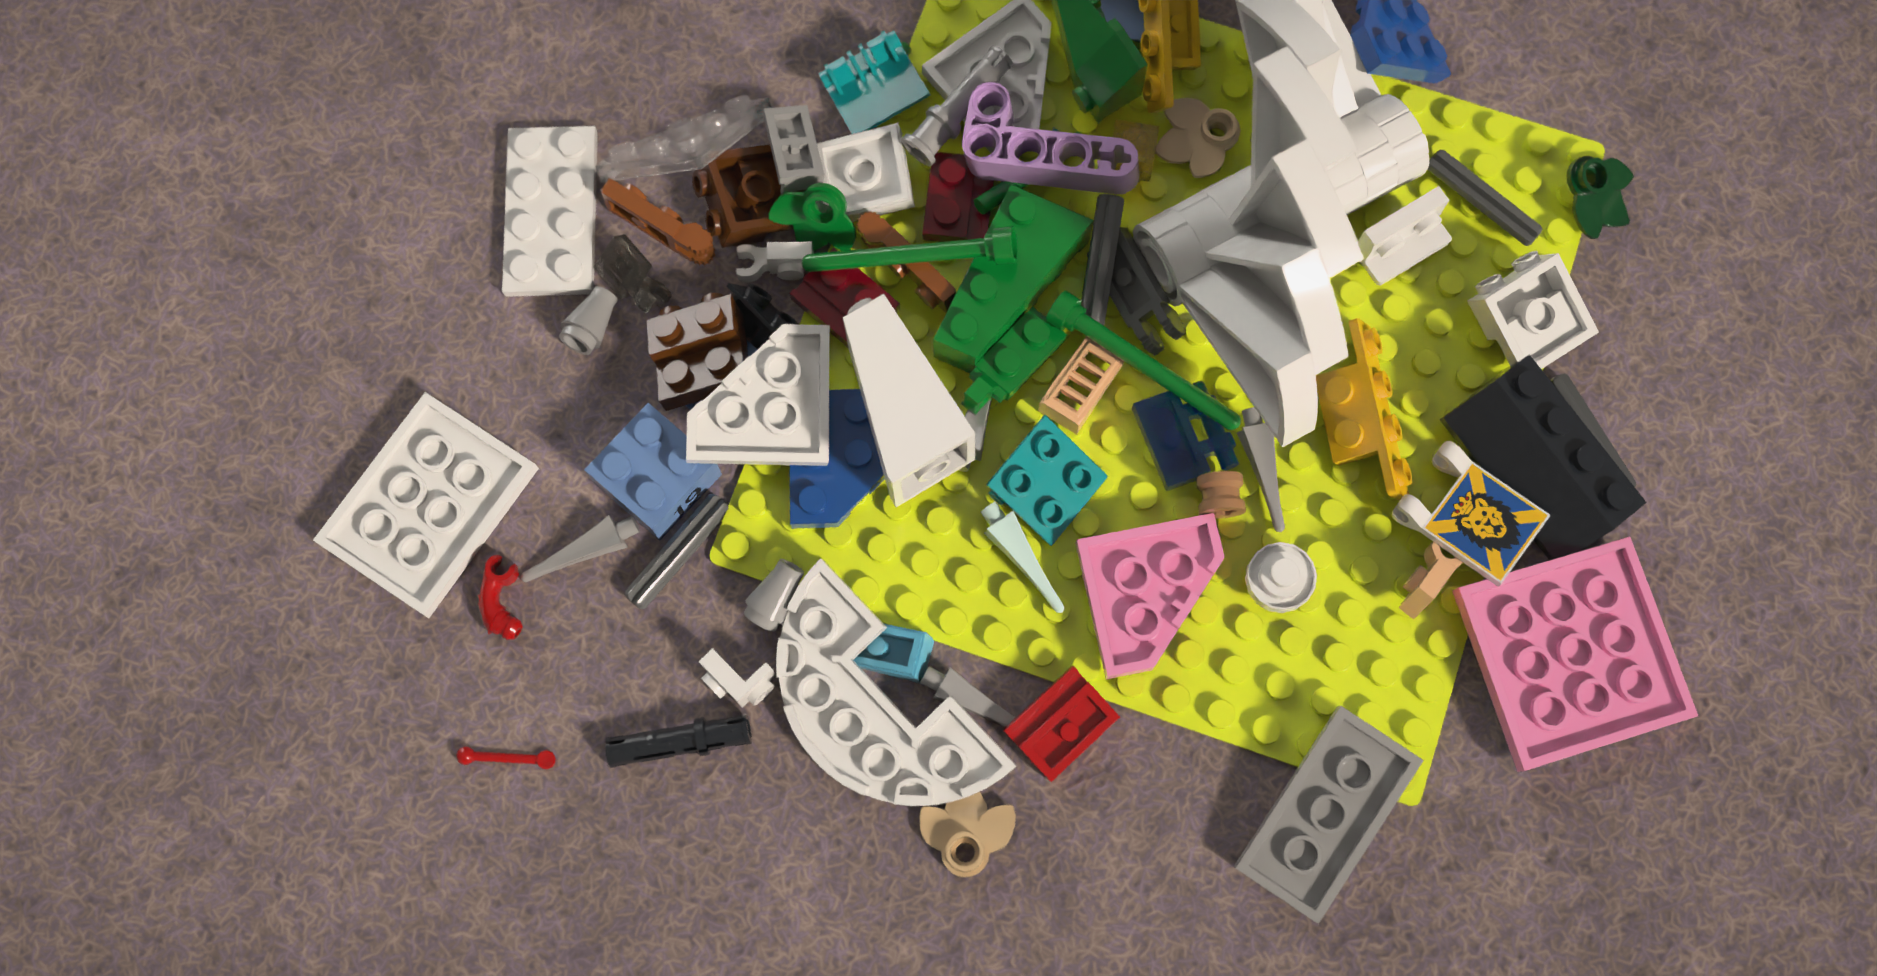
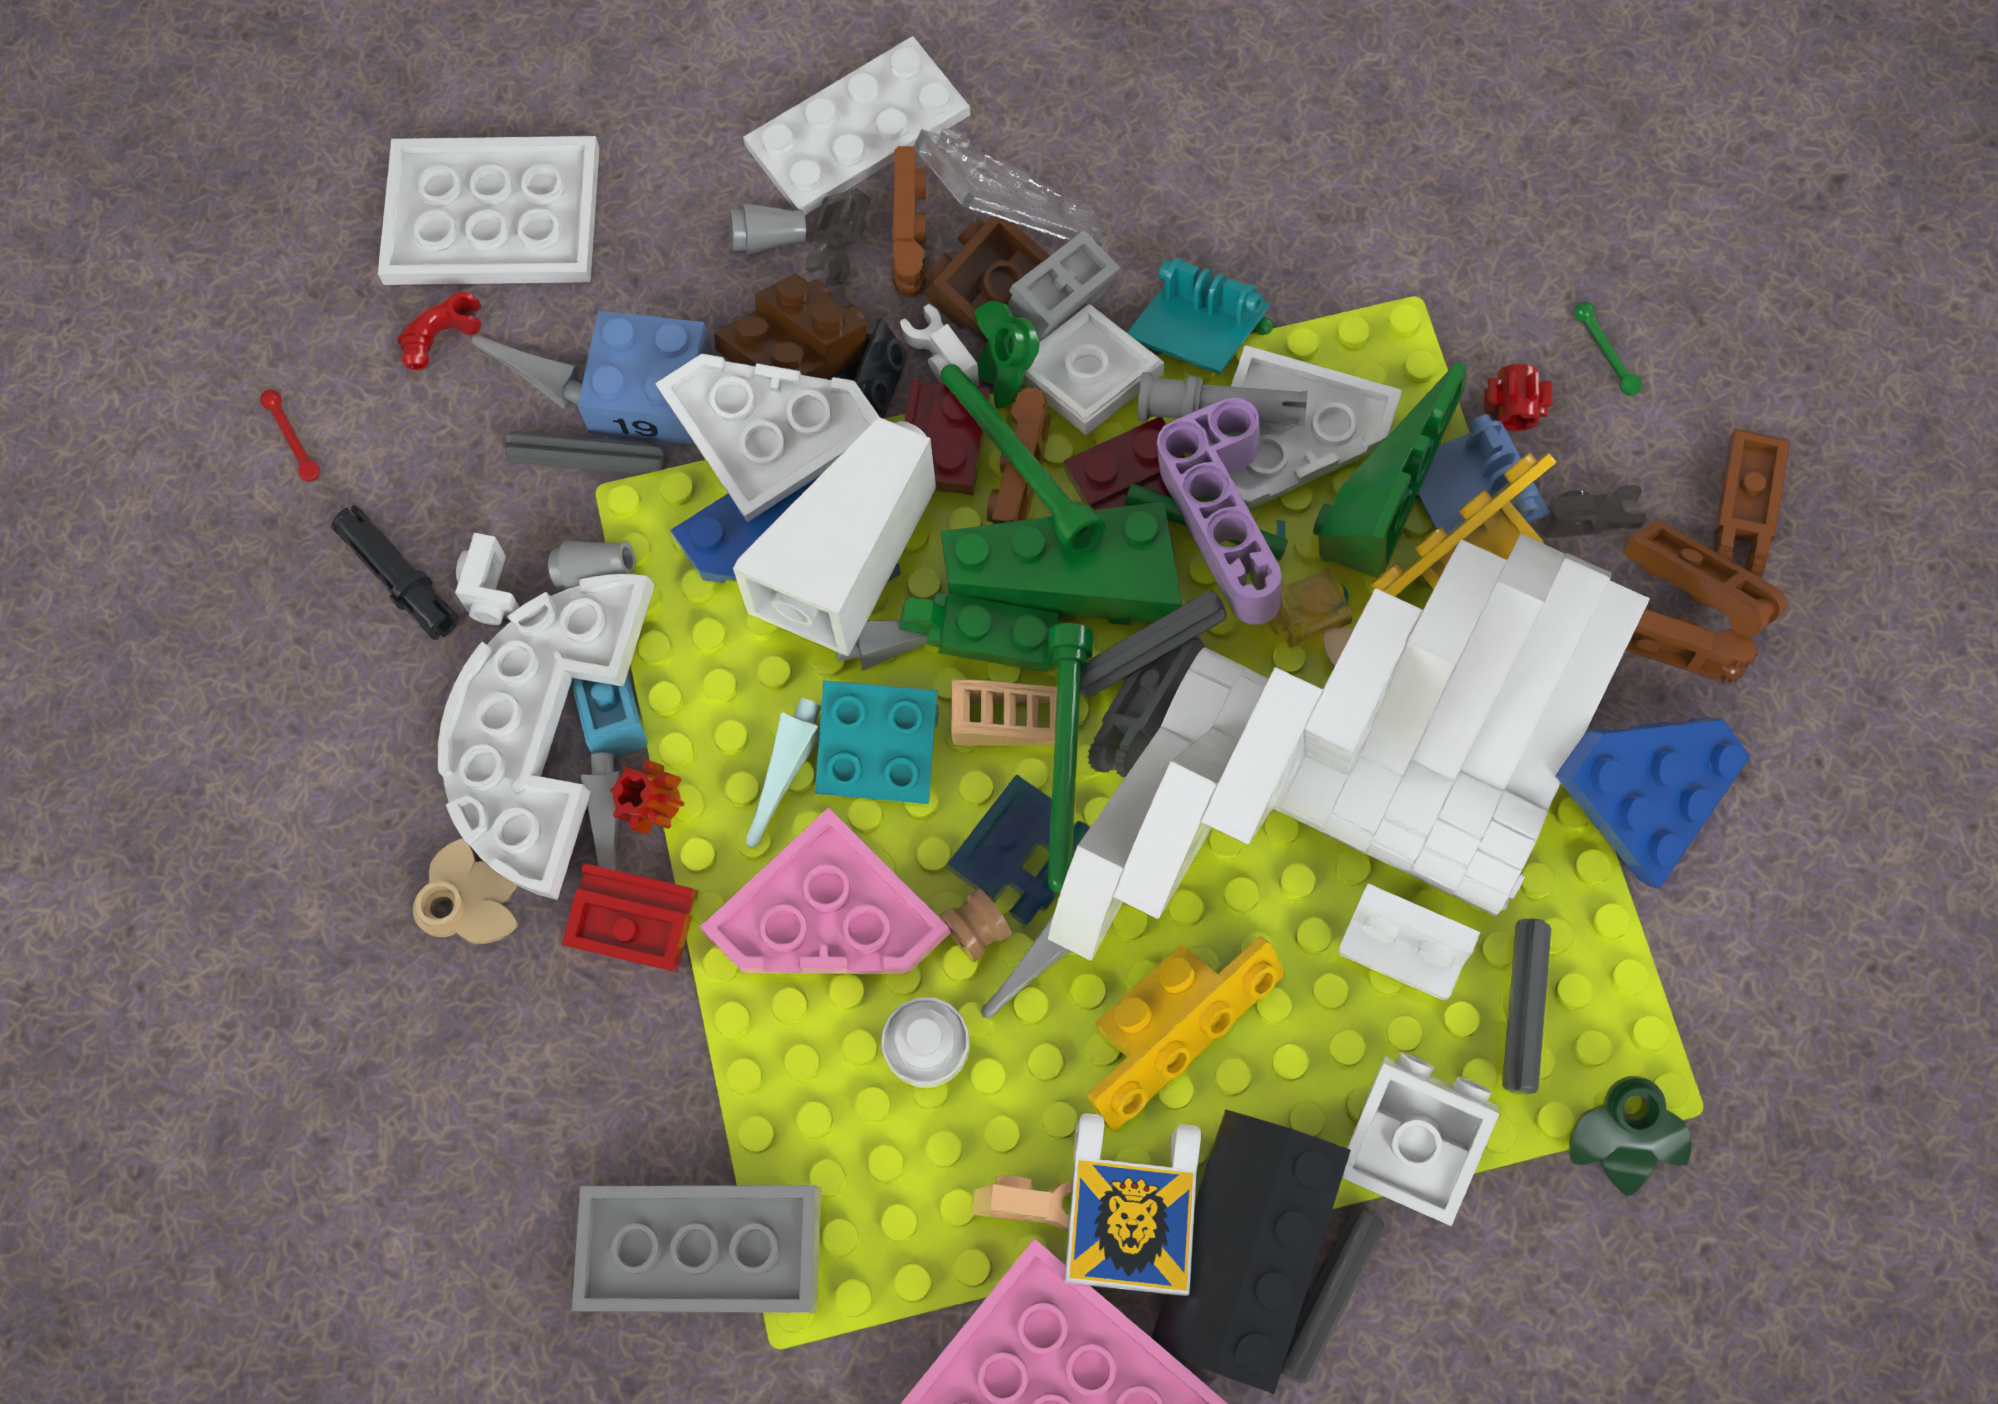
camera: 60 degrees right, 5 degrees down
(994, 651) = (647, 797): none -> red gear

